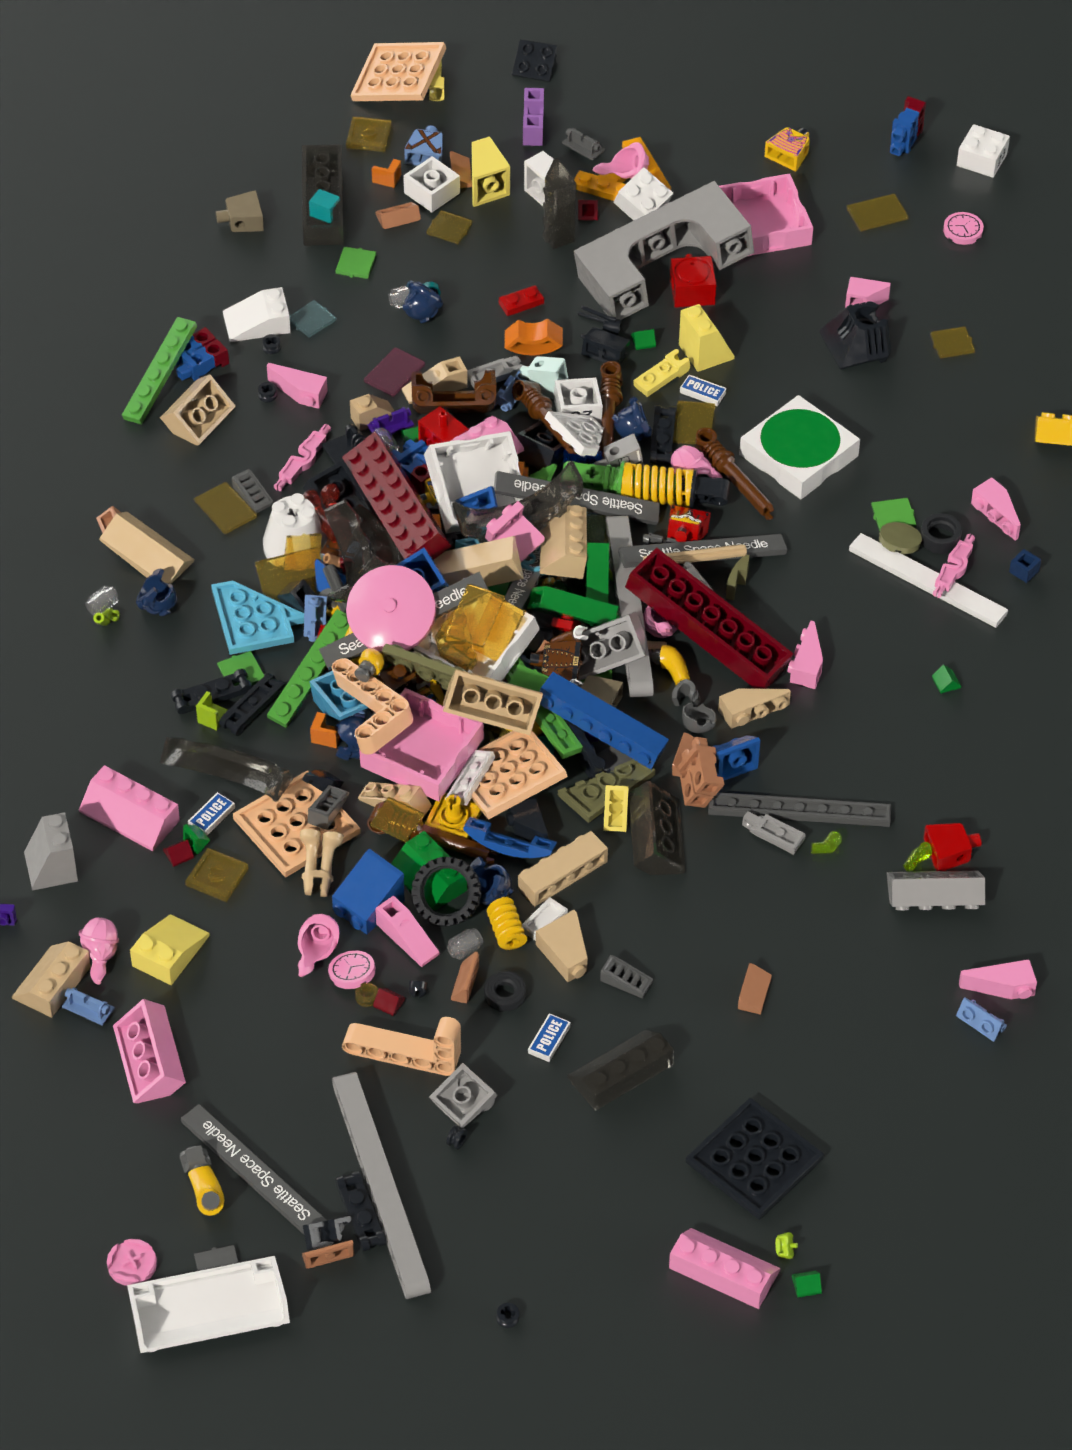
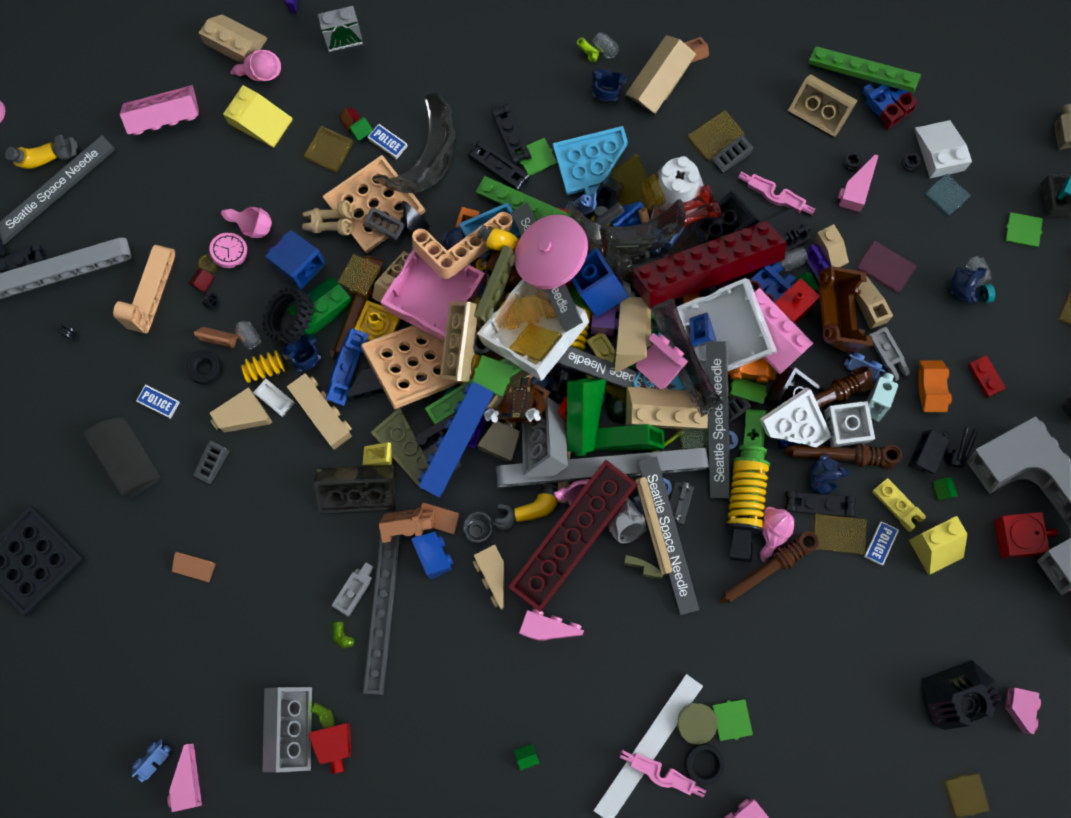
camera: 95 degrees right, 25 degrees up
(87, 1006) = (208, 65): medium blue hinge -> none
(129, 808) = (391, 81): bright pink slope -> none
(209, 713) = (488, 133): lime panel -> none
(405, 931) = (258, 288): bright pink slope -> none
(463, 1096) = (101, 336): light grey slope -> none
(471, 775) = (407, 334): white tile -> none
(475, 615) = (538, 320): clear yellow piece -> none
(625, 450) = (782, 468): light grey torso -> none
(687, 524) = (700, 521): red torso -> none
(799, 446) = (808, 632): tile -> none

